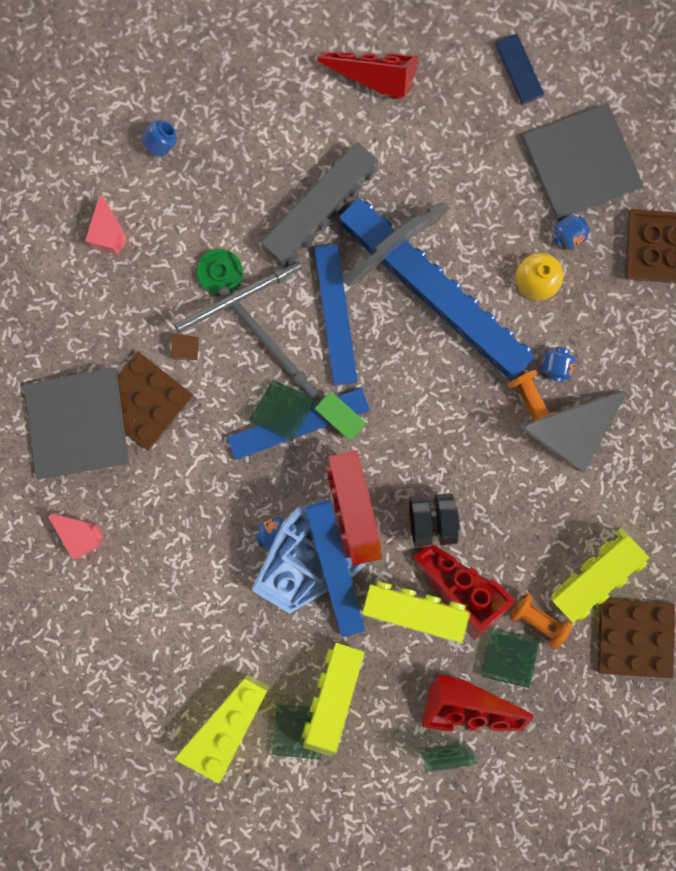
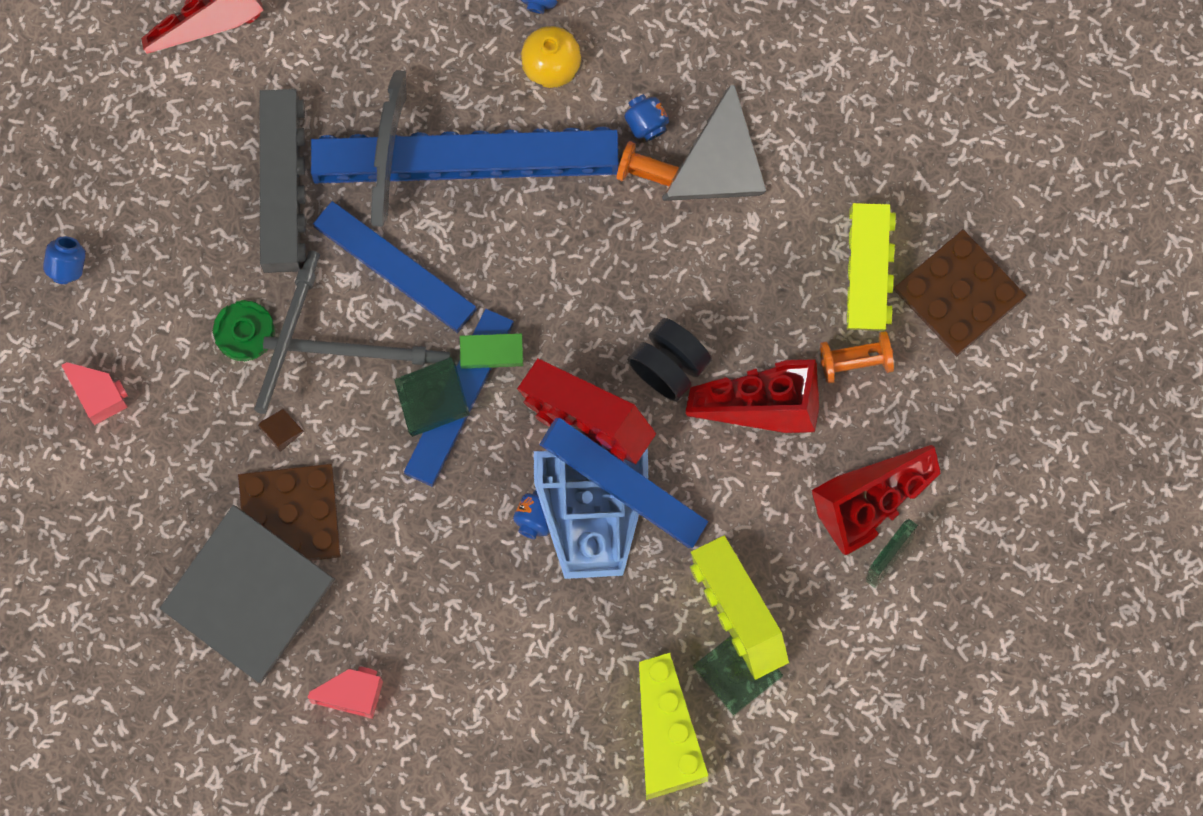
camera: 35 degrees left, 10 degrees down
(416, 612) = (732, 449): neon yellow wedge -> none
(510, 657) = (864, 418): clear green tile -> none

